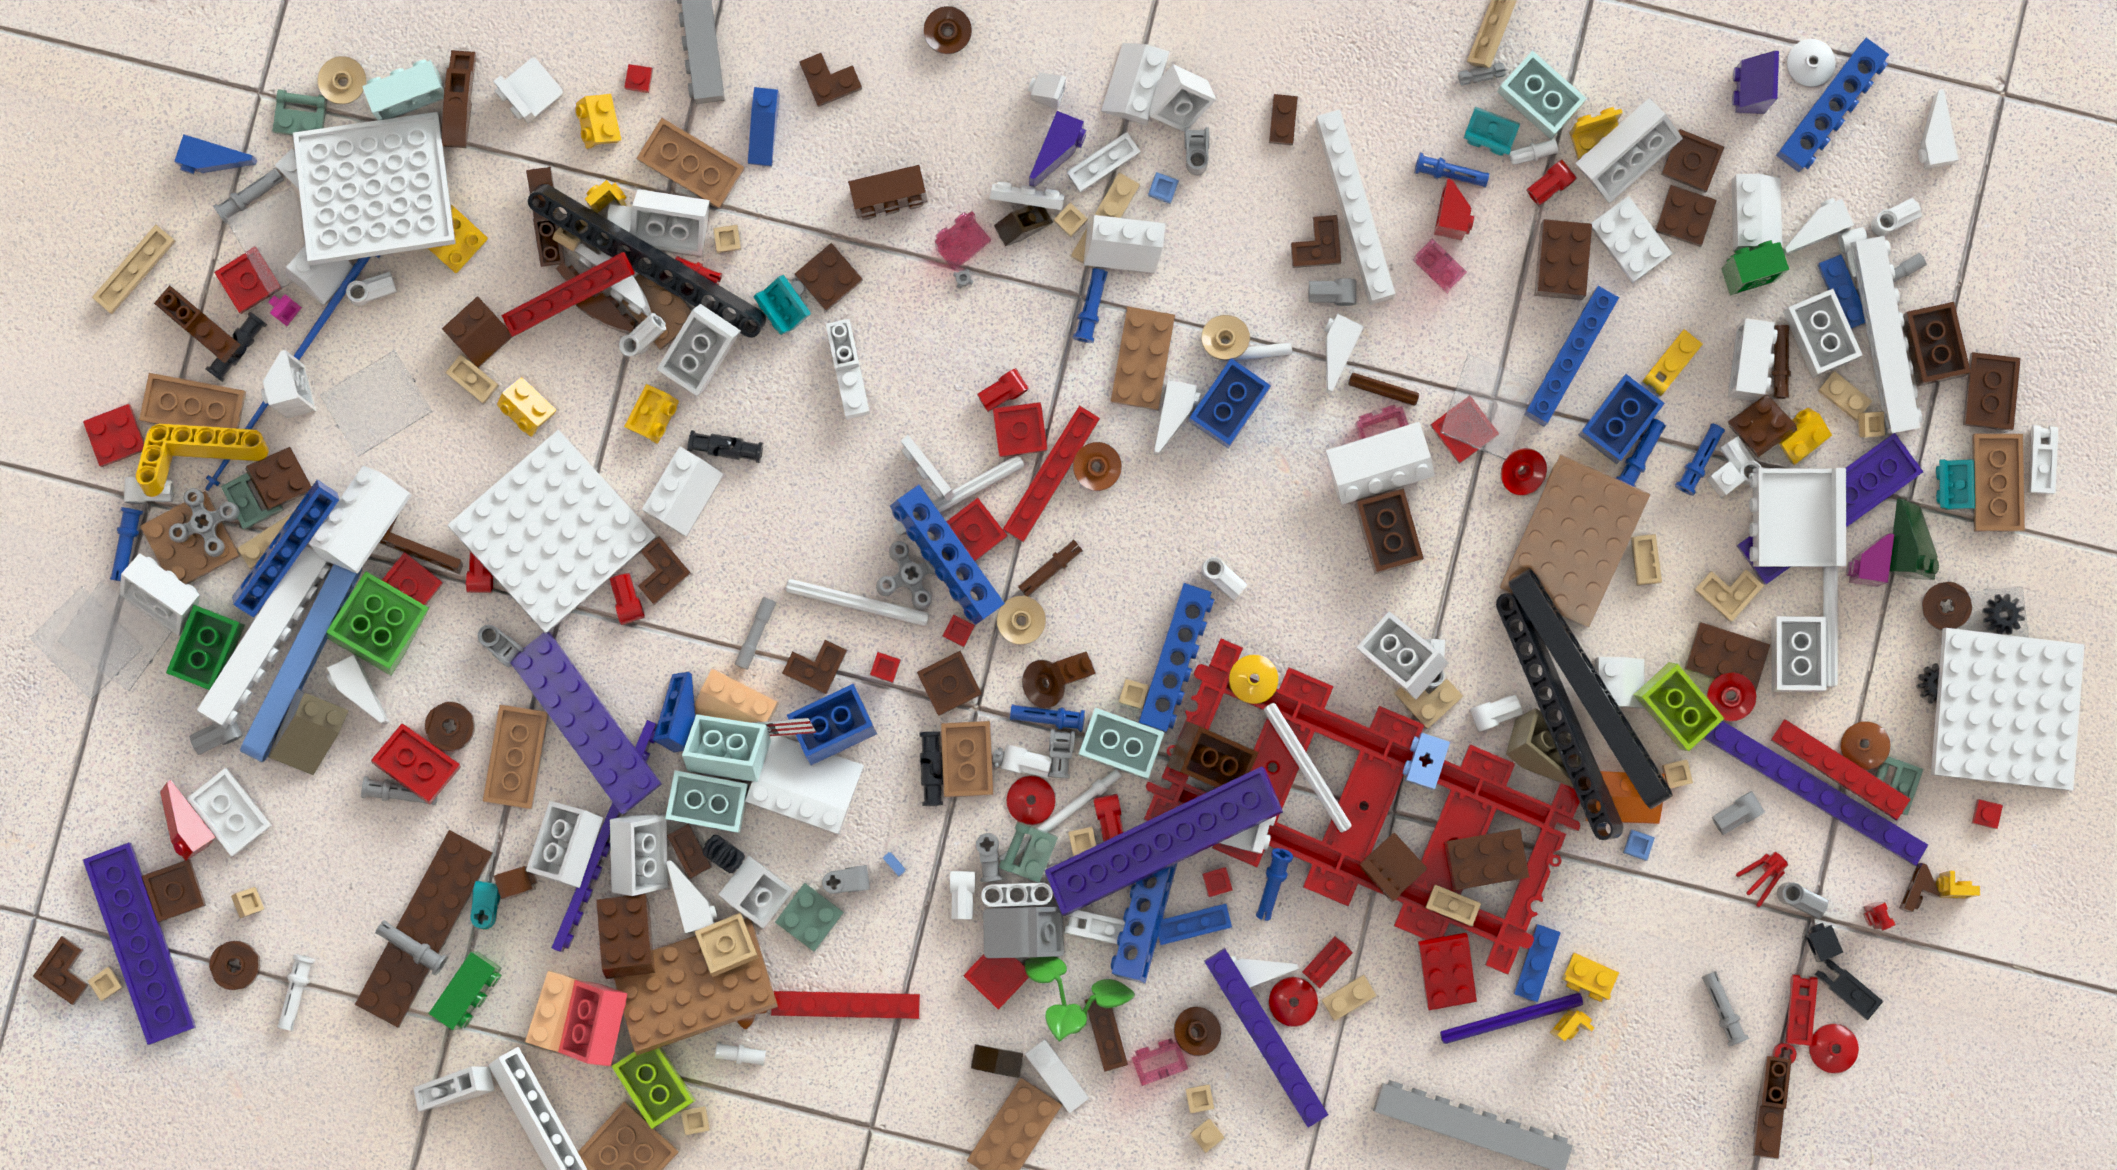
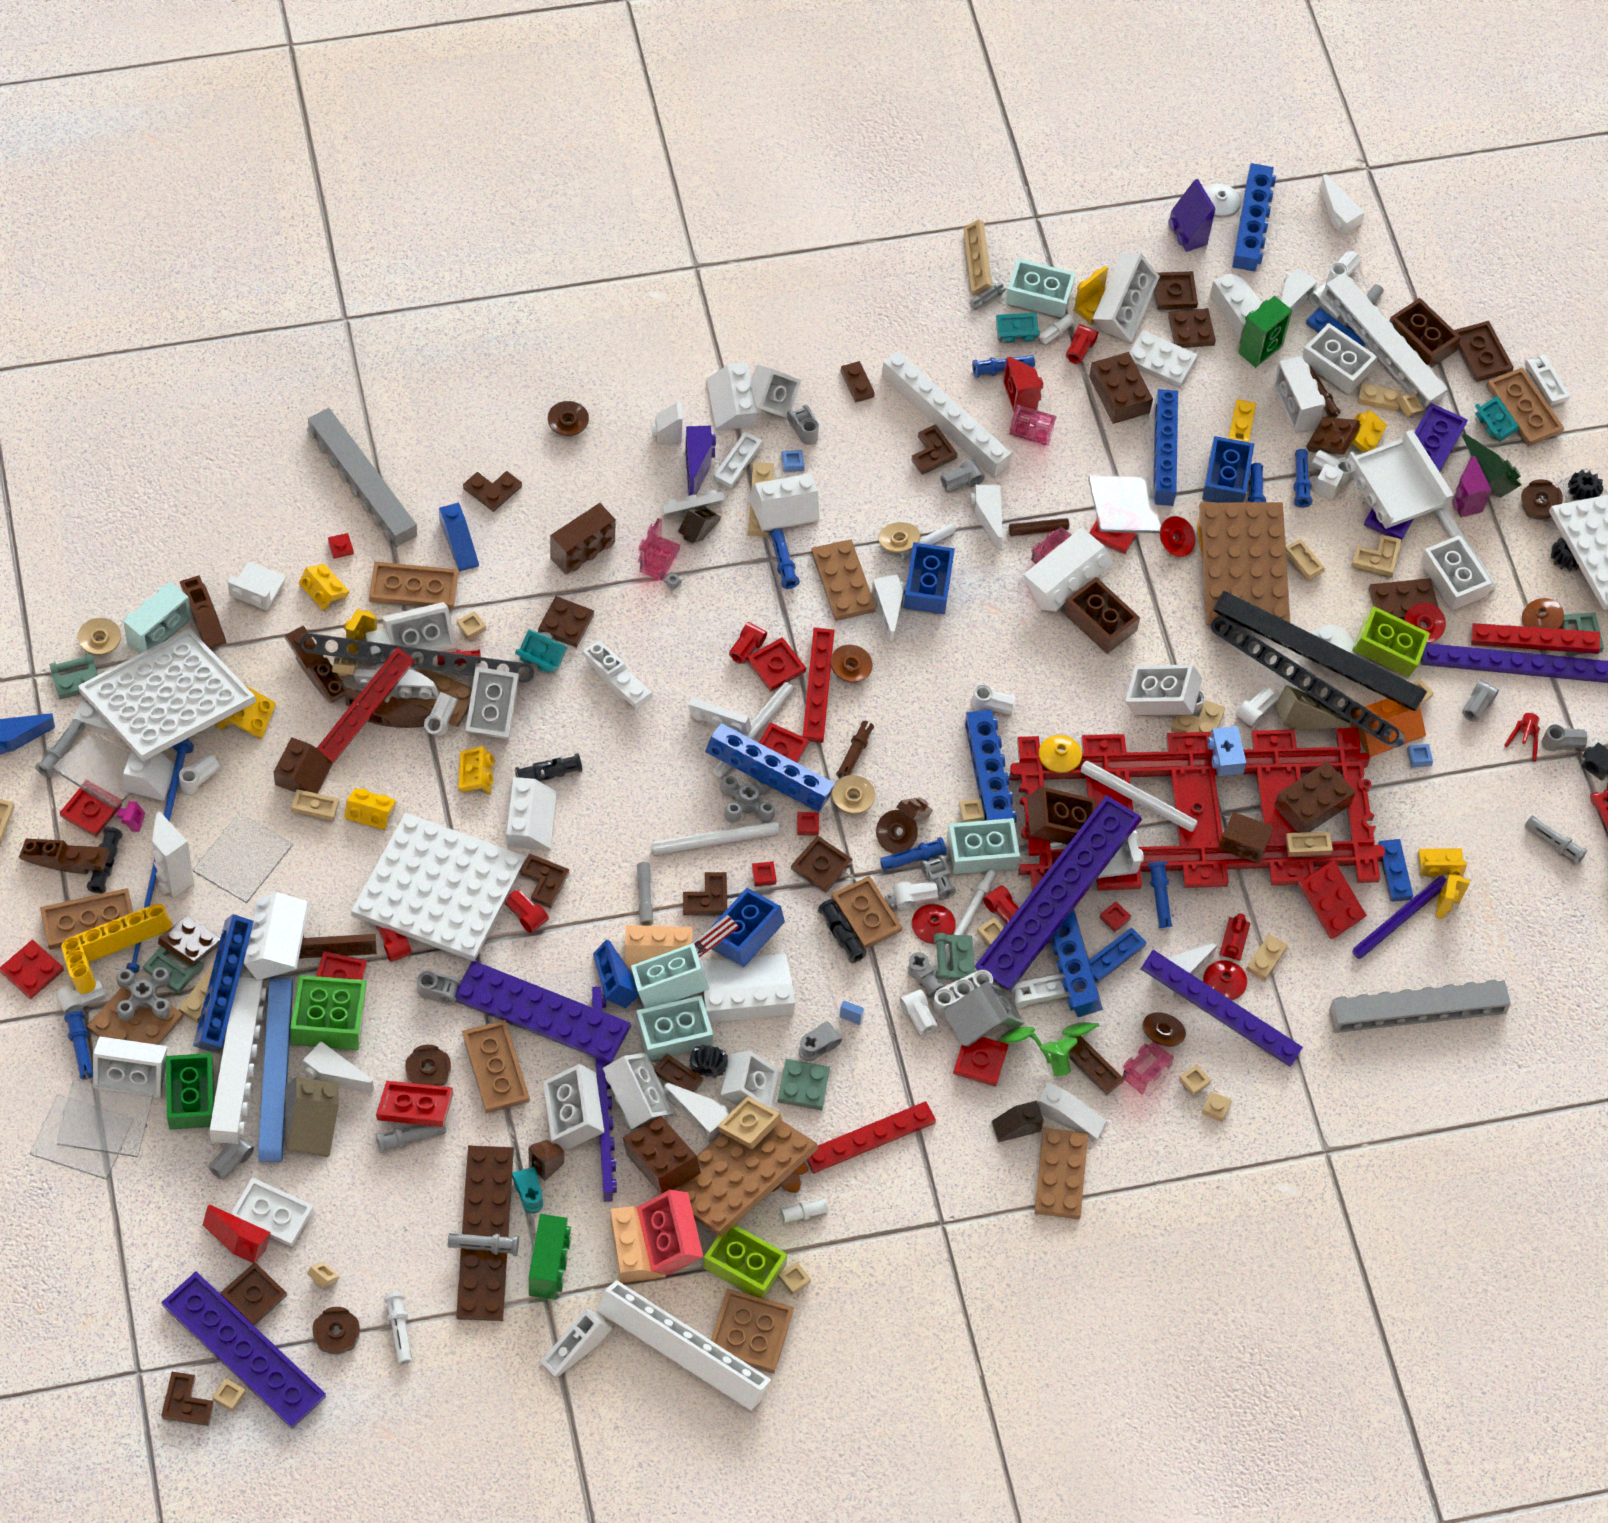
camera: 30 degrees left, 25 degrees down
(1070, 219) = (734, 507): tan plate -> none

